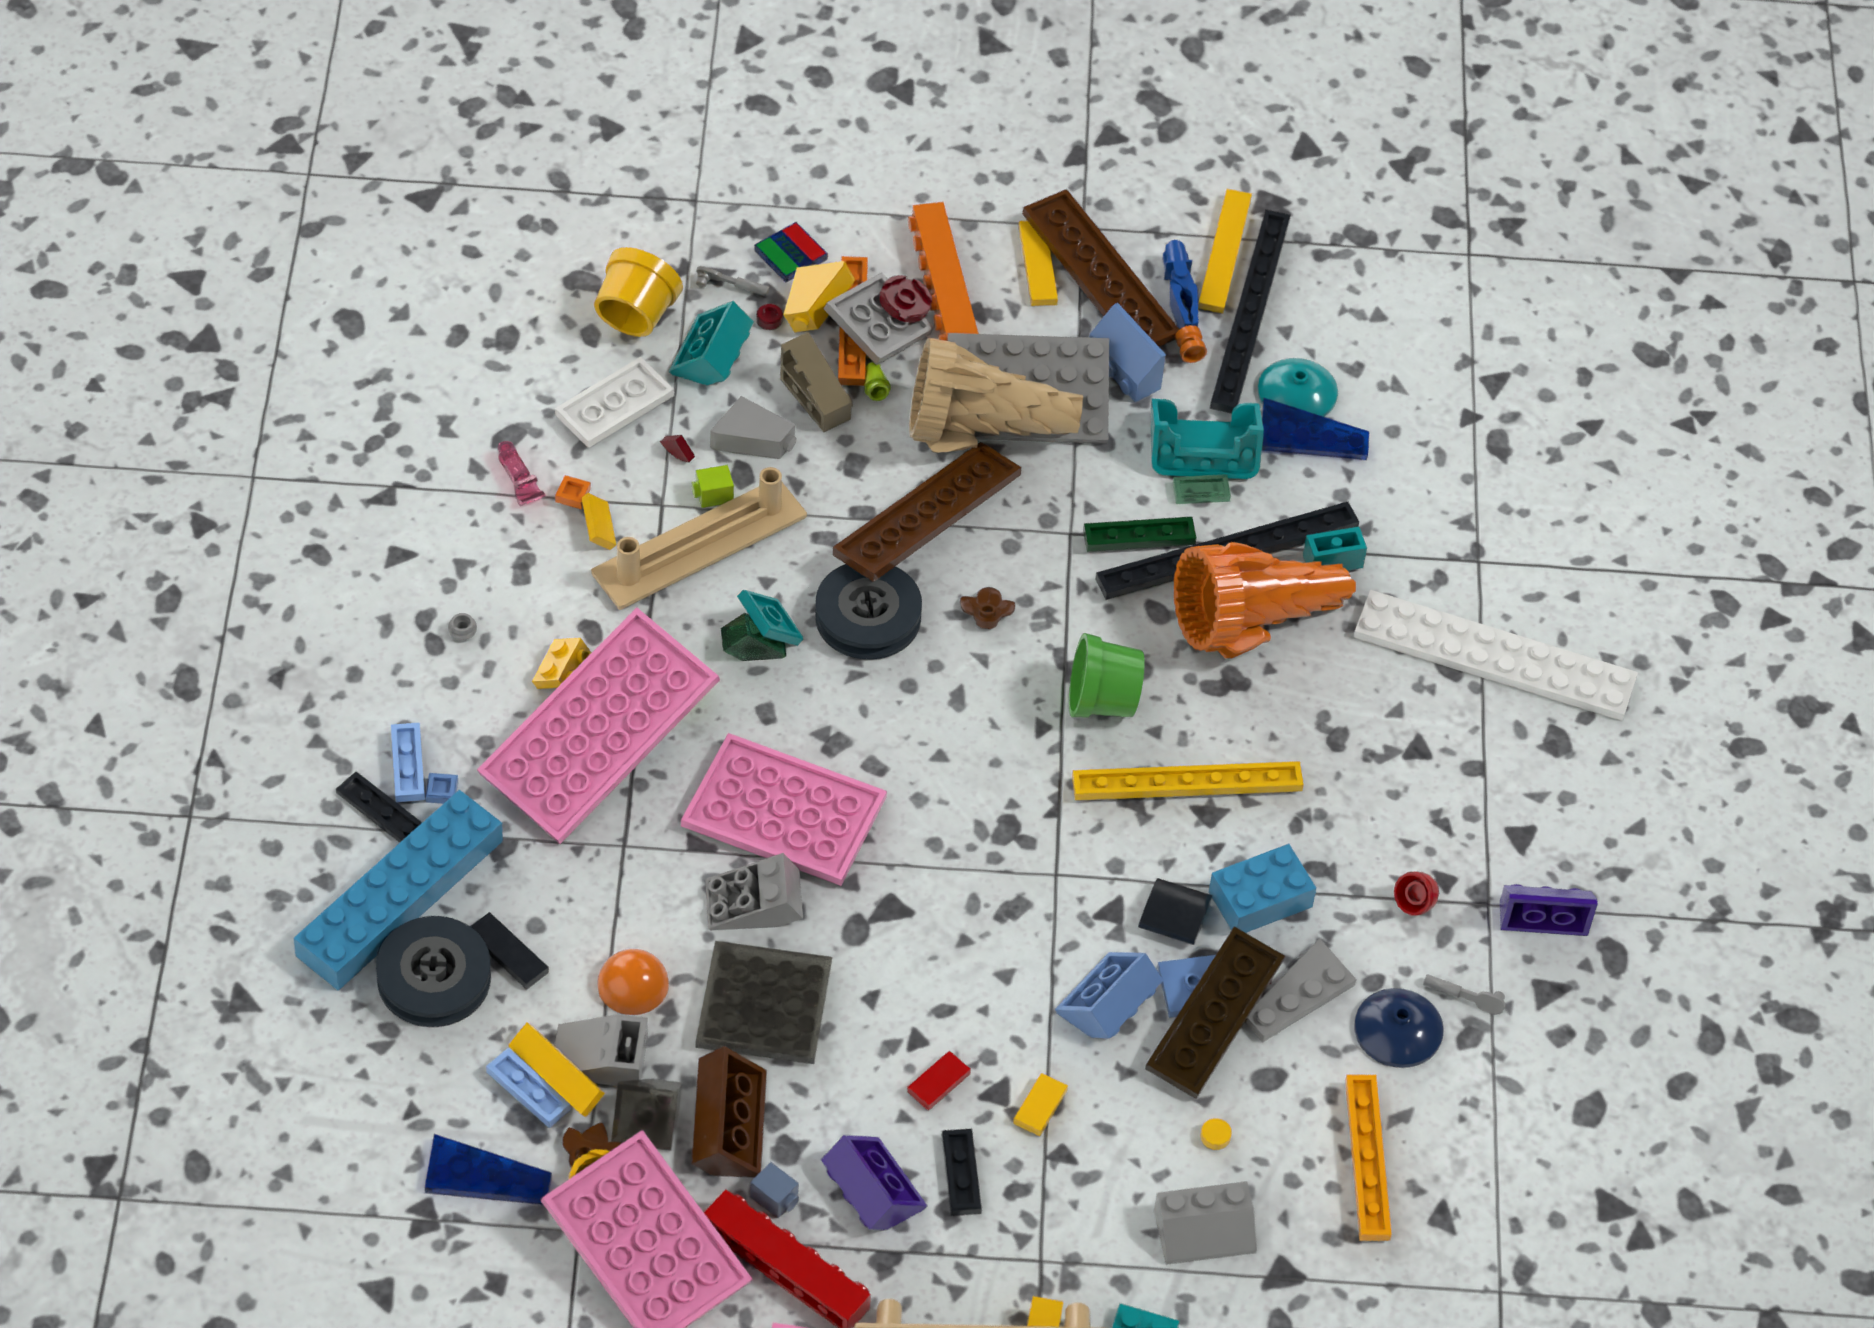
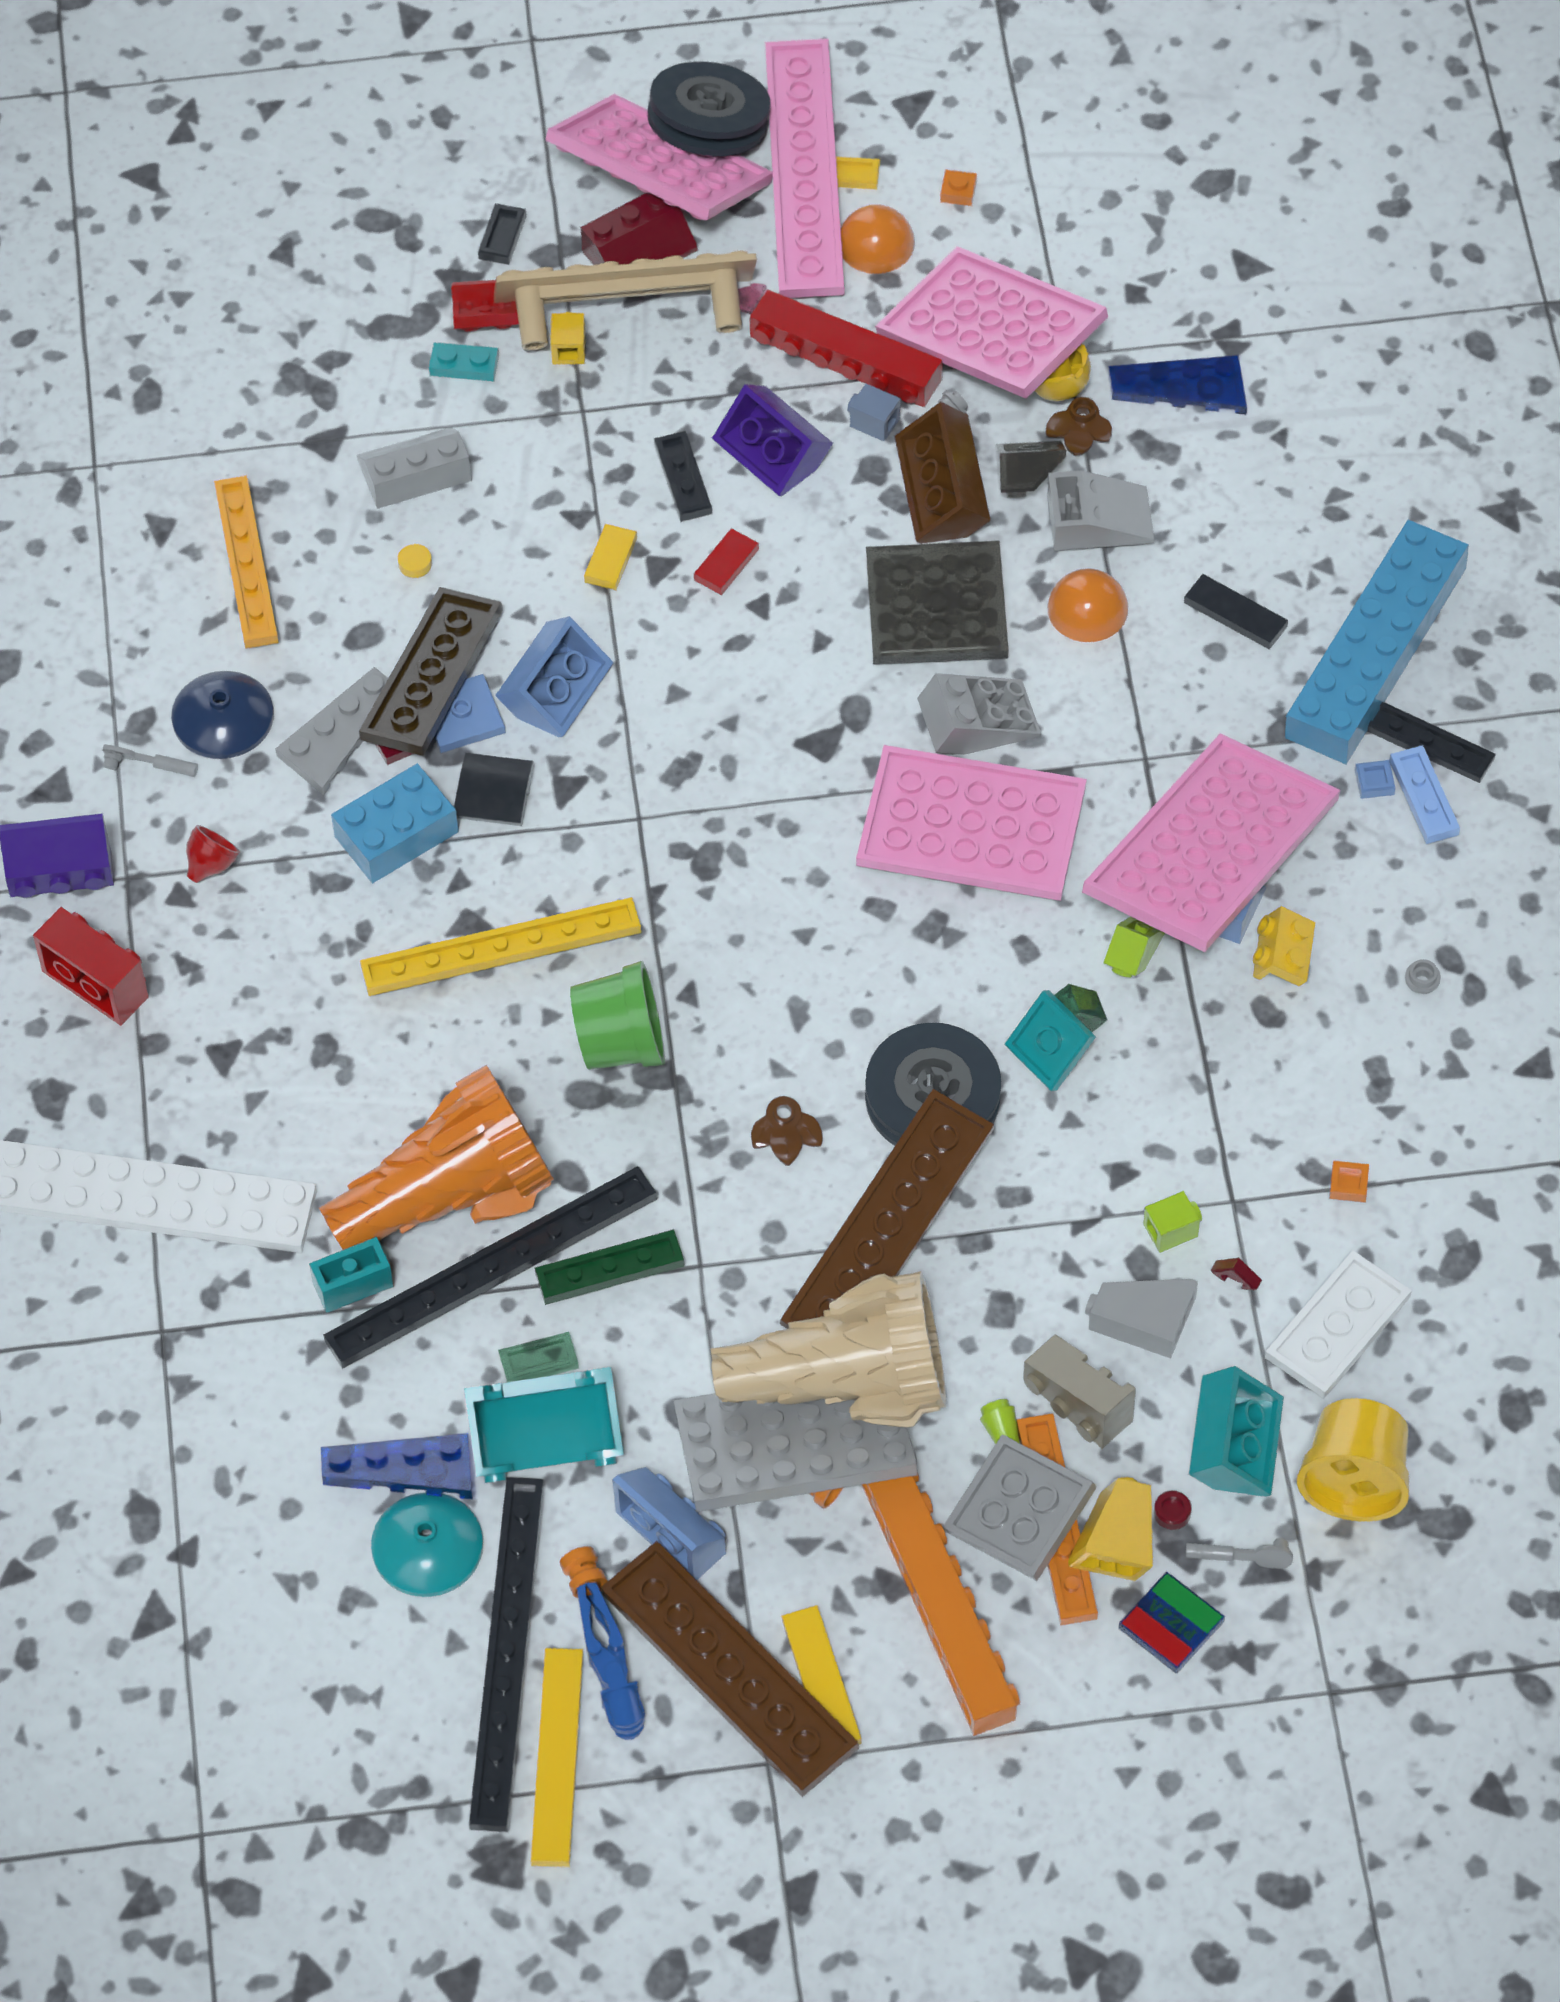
camera: 175 degrees right, 5 degrees up
(434, 998) = (1309, 537): black wheel -> none
(524, 483) = (1409, 1173): clear pink piece -> none
(528, 1087) = (1164, 469): light blue plate -> none
(556, 1069) = (1139, 480): yellow tile -> none
(598, 521) = (1302, 1144): yellow tile -> none
(698, 542) = (1168, 1146): tan piece -> none
(700, 1185) = (954, 400): none -> light grey plate
(905, 299) = (990, 1543): dark red tile -> none
(1522, 807) = (91, 965): none -> red brick

